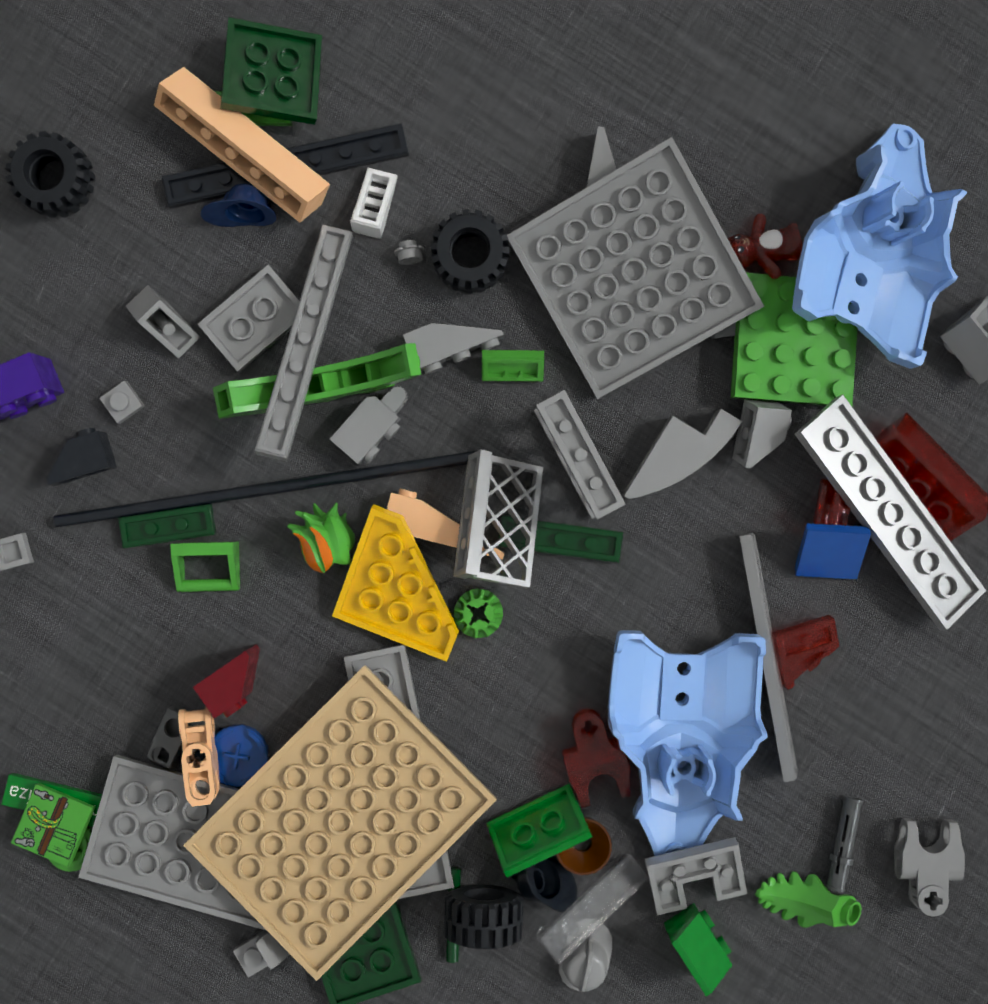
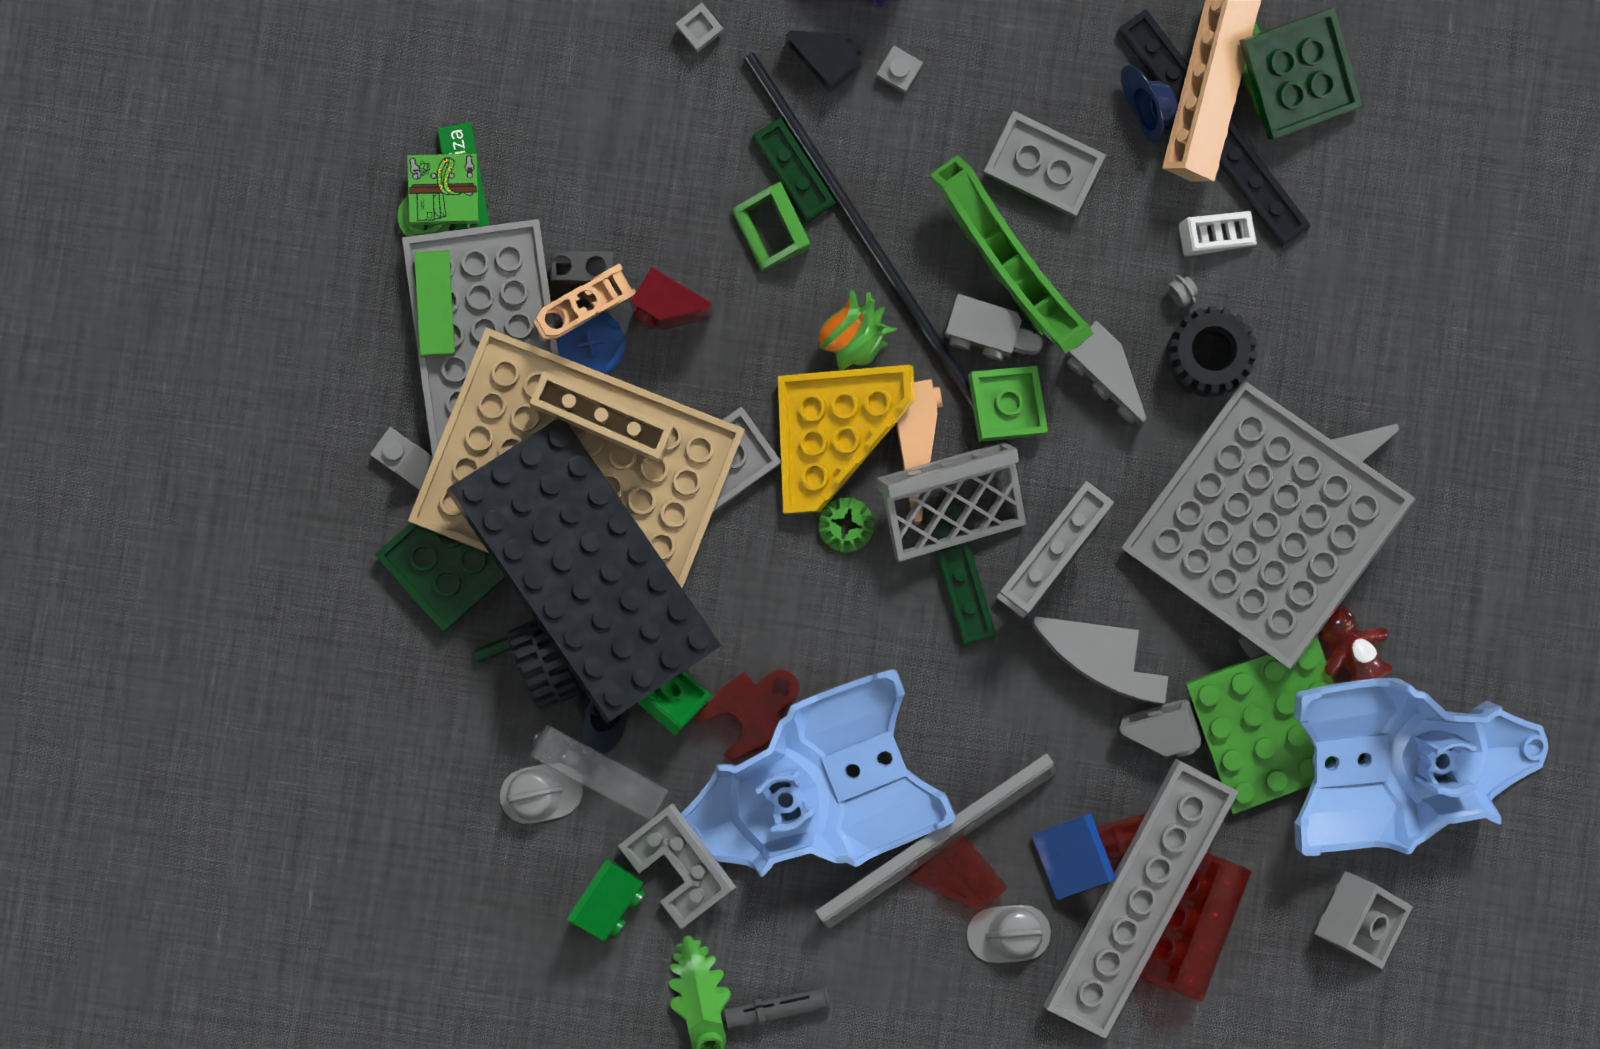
camera: 70 degrees right, 5 degrees down
(144, 875) = (434, 303): none -> bright green tile
(162, 321) = (999, 75): light grey slope -> none
(300, 787) = (601, 416): none -> tan brick
(303, 344) = (1044, 225): light grey tile -> none
(421, 857) = (583, 568): none -> black plate
(438, 438) = (1008, 403): none -> bright green plate
(512, 365) = (1115, 446): bright green plate -> none
(594, 857) = (643, 751): reddish brown piece -> none
(865, 629) = (1008, 933): none -> light grey piece

